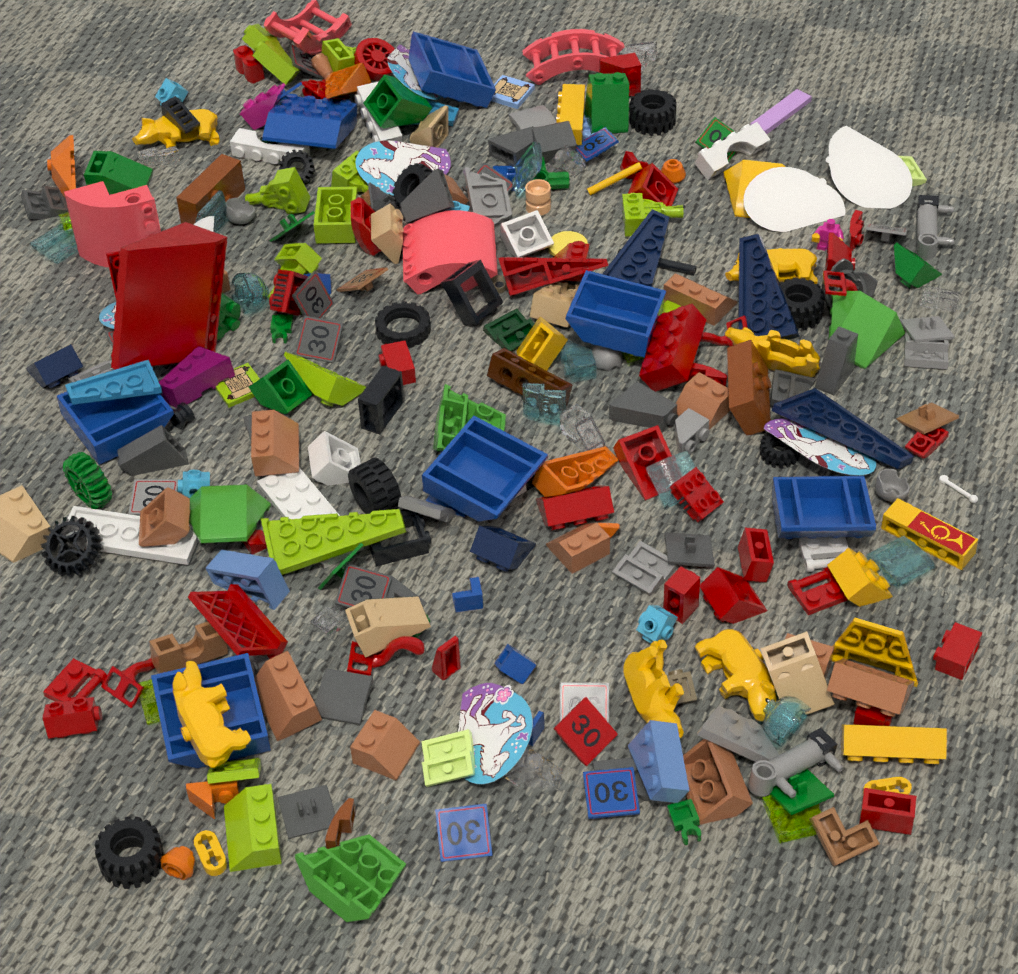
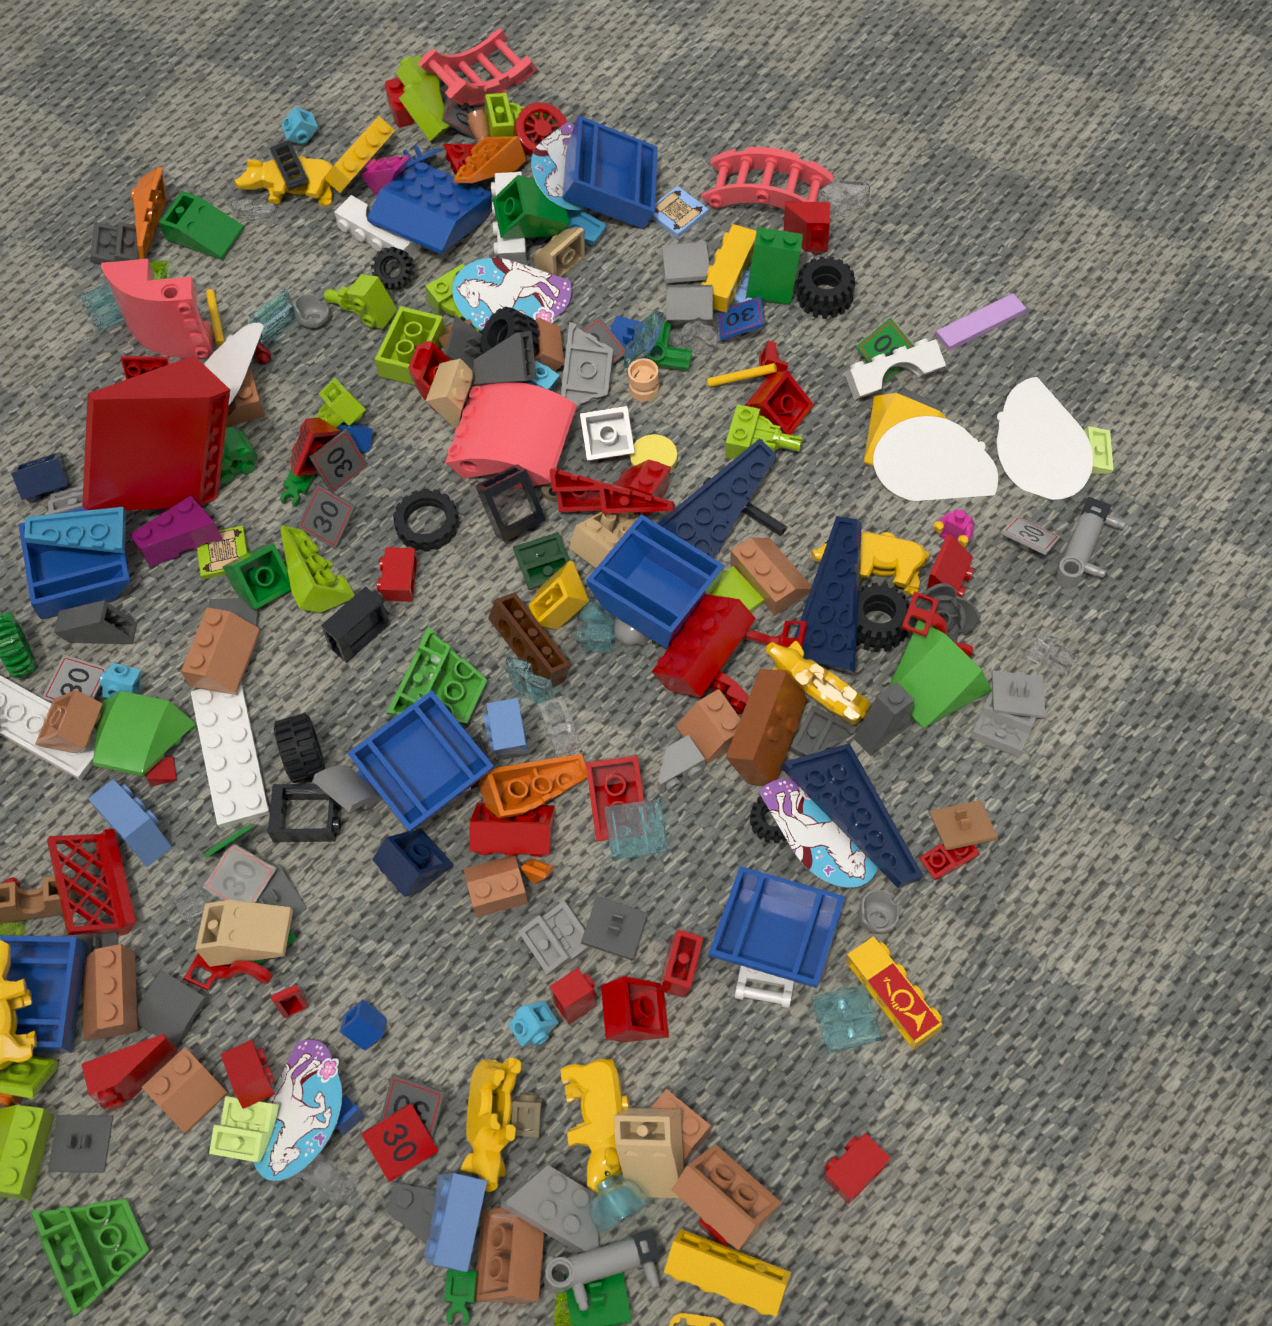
camera: 20 degrees right, 15 degrees up
(182, 415) = (144, 579): black wheel -> none
(222, 175) = (298, 270): dark orange brick -> none
(233, 100) = (359, 154): none -> yellow brick
(249, 288) = (278, 428): clear light blue cylinder -> none
(294, 222) = (361, 347): green piece -> none
(325, 536) = (214, 794): lime wing -> none
(328, 741) = (122, 1073): none -> red slope
(332, 459) = (280, 689): white slope -> none
(341, 823) = (107, 1171): dark orange slope -> none
(363, 280) = (405, 445): medium nougat piece -> none
(436, 716) = (247, 1073): none -> red brick
(463, 832) = (221, 1232): piece -> none
(469, 599) = (350, 918): blue panel -> none
(510, 146) = (646, 295): dark grey slope -> none
(547, 429) = (506, 729): none -> medium blue wedge
(611, 793) = (394, 1233): blue piece -> none
(643, 408) = (642, 715): dark grey slope -> none
(673, 170) = (815, 380): orange cone -> none
(697, 493) = (651, 857): red hinge -> none
(820, 596) = (736, 1038): red plate -> none
(855, 230) = (992, 525): red slope -> none
(859, 578) = (785, 1033): yellow slope -> none
(875, 646) = (760, 1144): yellow wedge -> none
(913, 268) = (1039, 599): green slope -> none
(972, 498) = (947, 915): white hinge -> none

